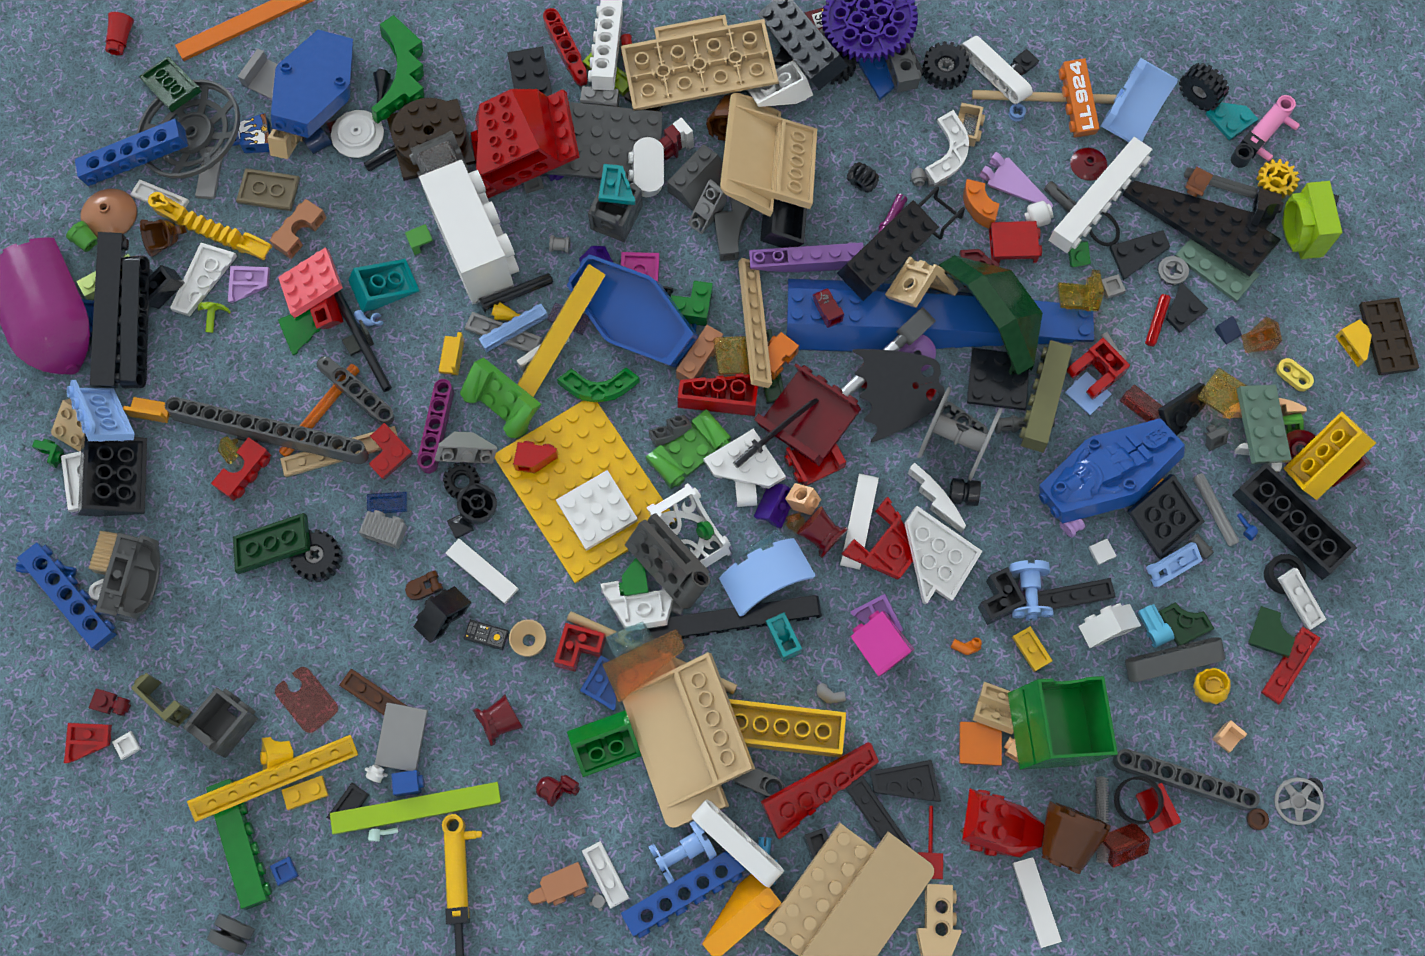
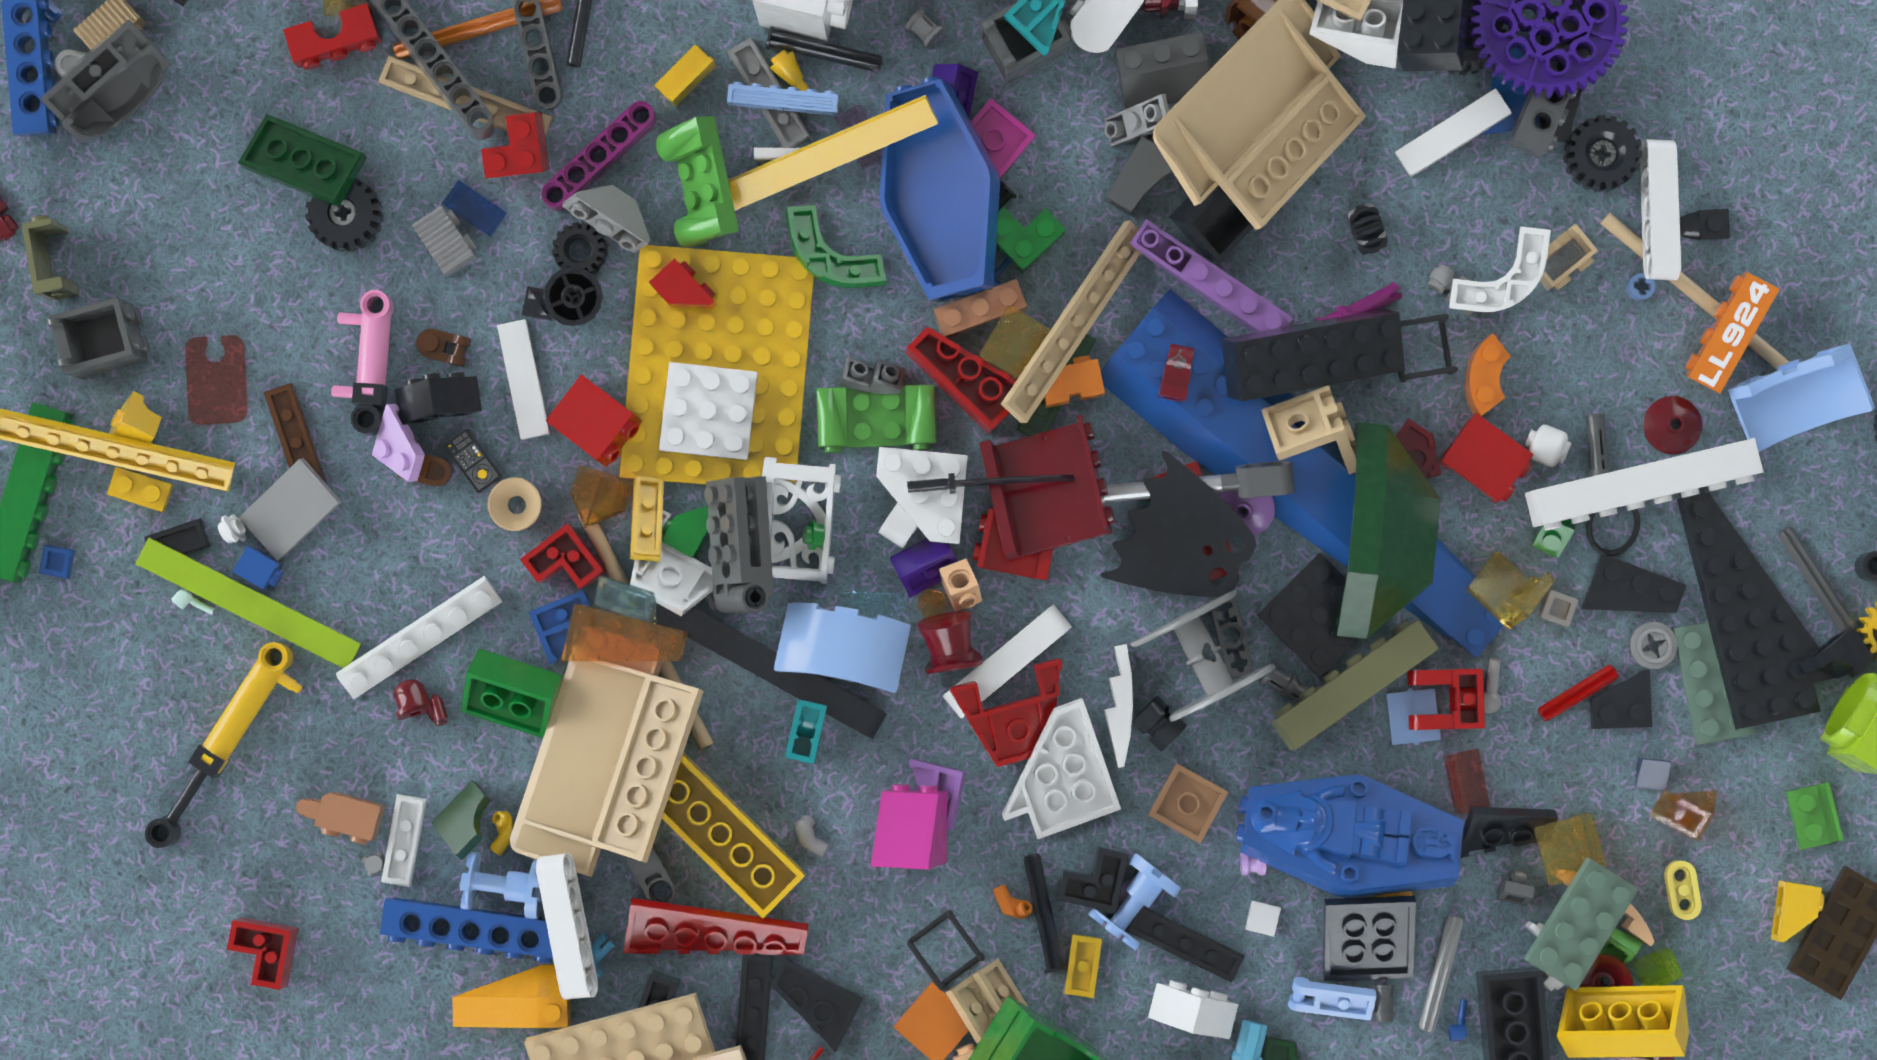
camera: 40 degrees right, 15 degrees up
(390, 623) = (371, 388): none -> bright pink piece
(437, 654) = (397, 446): none -> lavender wing
(468, 654) = (434, 471): none -> reddish brown plate
(498, 719) = (410, 575): dark red hat -> none
(528, 753) = (418, 637): none -> white plate
(538, 560) = (594, 421): none -> red panel
(570, 598) = (599, 495): none -> clear orange slope
(607, 590) = (647, 518): none -> yellow tile
(630, 835) = (461, 820): none -> tile
(658, 822) = (504, 825): none -> yellow arm
(866, 107) = (1453, 133): none -> white tile
(932, 706) = (979, 956): none -> black piece
(988, 638) = (1043, 913): none -> black axle
(1011, 180) = (1555, 376): lavender flag -> none
(1013, 522) = (1188, 803): none -> medium nougat plate
(1198, 181) = (1784, 558): dark orange bracket -> none
(1318, 419) = (1658, 968): none -> clear neon green panel
(1323, 292) = (1814, 815): none -> bright green plate

